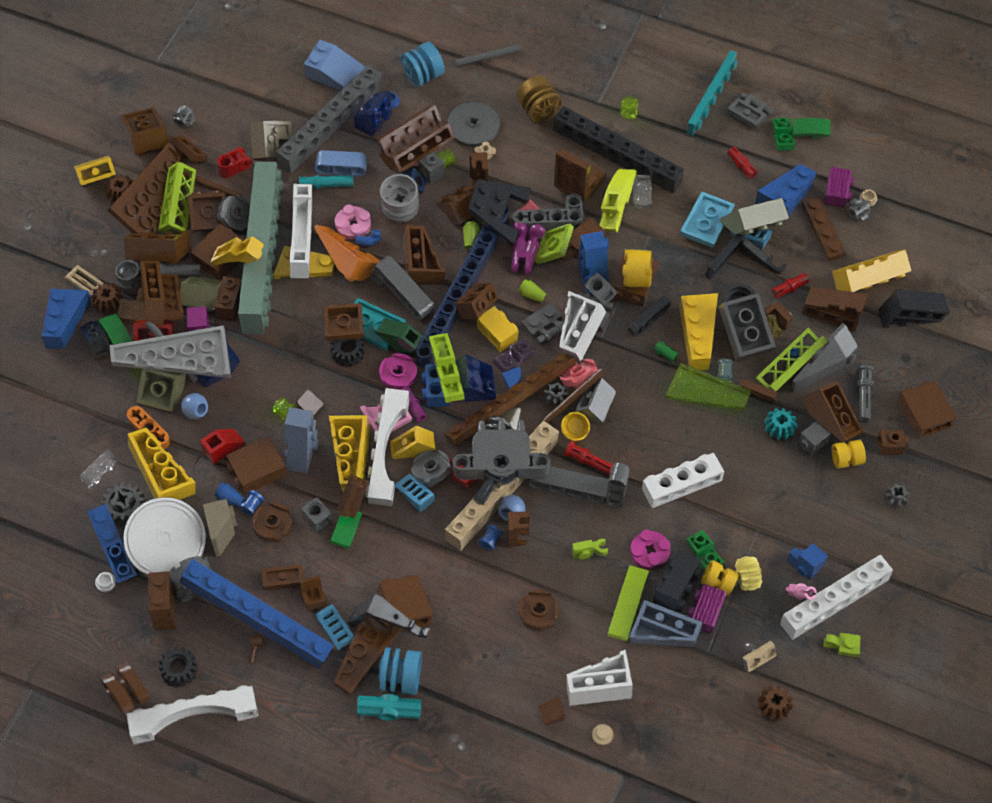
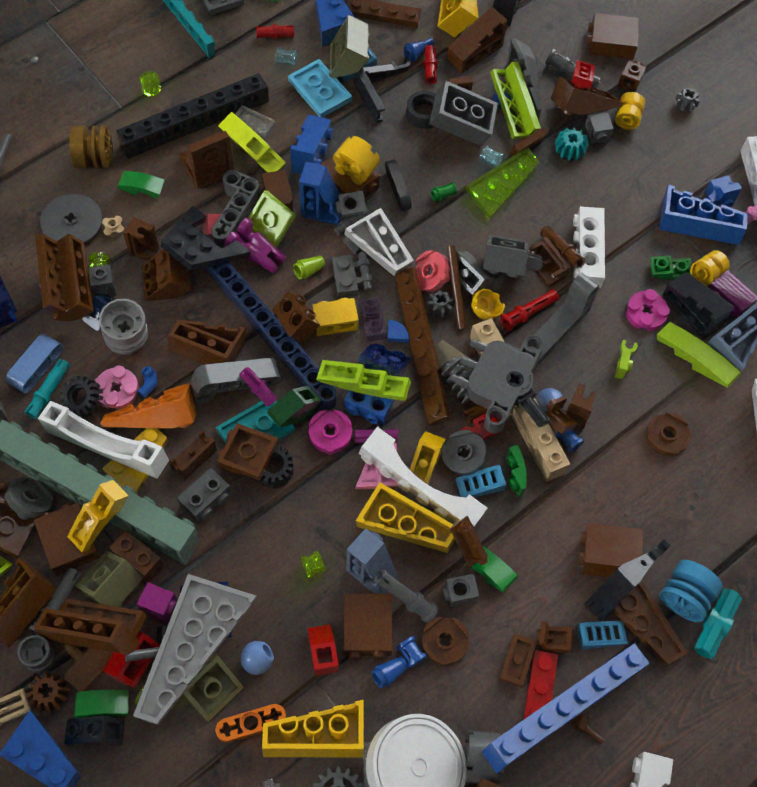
camera: 65 degrees left, 5 degrees up
(221, 524) = (431, 697): dark tan slope -> none
(282, 599) = (540, 681): none -> red plate
(287, 484) = (413, 600): none -> dark grey pin
(298, 316) = (205, 496): none -> dark grey brick
(309, 402) = (319, 536): slope -> none
(325, 296) = (193, 456): none -> reddish brown hinge
(330, 203) = (92, 397): none -> black tyre
(400, 303) = (258, 386): none -> magenta axle
(435, 514) = (517, 478): none -> green slope
(470, 232) = (207, 286): lime cone -> none
(496, 513) = (558, 417): none -> reddish brown bracket
(533, 148) = (145, 183): none -> green slope
(626, 419) = (509, 257): none -> dark grey hinge
(647, 455) = (554, 265): none -> reddish brown hinge
(654, 236) = (311, 143): none -> blue wedge
(662, 460) = (567, 250): none -> reddish brown pin
(698, 324) = (438, 153): yellow wedge -> none
(722, 182) = (280, 53): none -> clear light blue bush
(748, 573) = (716, 240): light yellow gear -> none
(766, 543) = (701, 218): none -> blue wedge
(797, 267) = (415, 49): none -> blue cone
(849, 394) = (583, 75): none -> red plate

